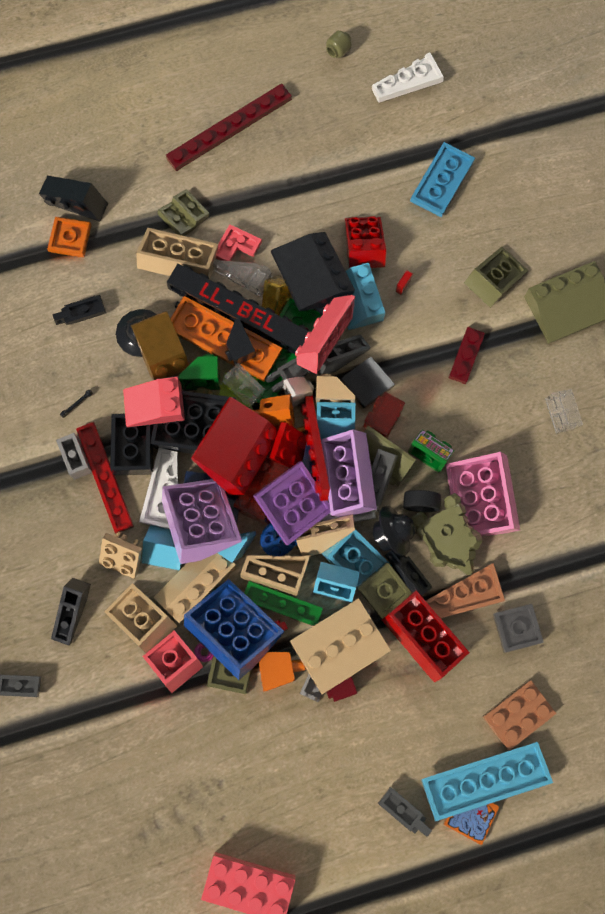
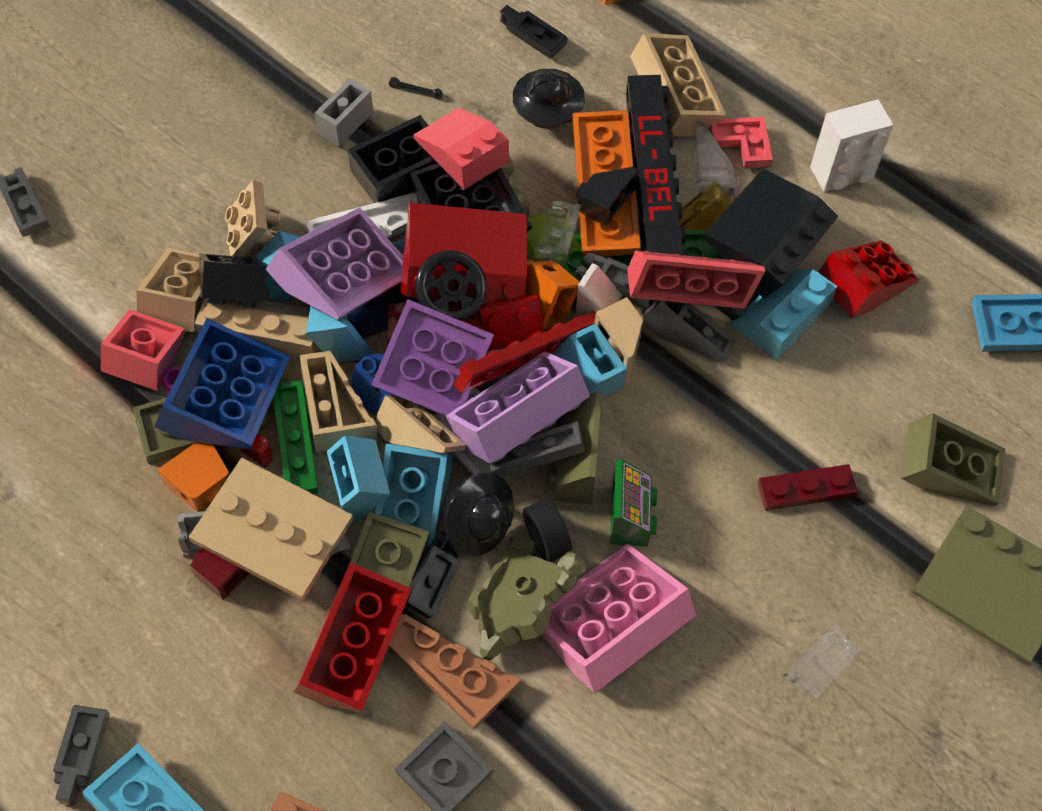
camera: 60 degrees right, 15 degrees down
(70, 610) = (149, 209): black slope -> none
(104, 477) = (335, 167): red tile -> none
(159, 585) = (231, 279): none -> black slope
(160, 346) = (543, 118): pearl gold slope -> none
(183, 213) = (740, 68): olive slope -> none
(201, 373) = (540, 179): green slope -> none
(228, 127) = (895, 56): dark red plate -> none
(247, 478) = (447, 261): none -> black plate
(288, 194) = (851, 145): none -> white brick
(367, 382) = (673, 381): black slope -> none
(385, 414) = (633, 419): clear red brick -> none
(403, 283) = (847, 350): red tile -> none

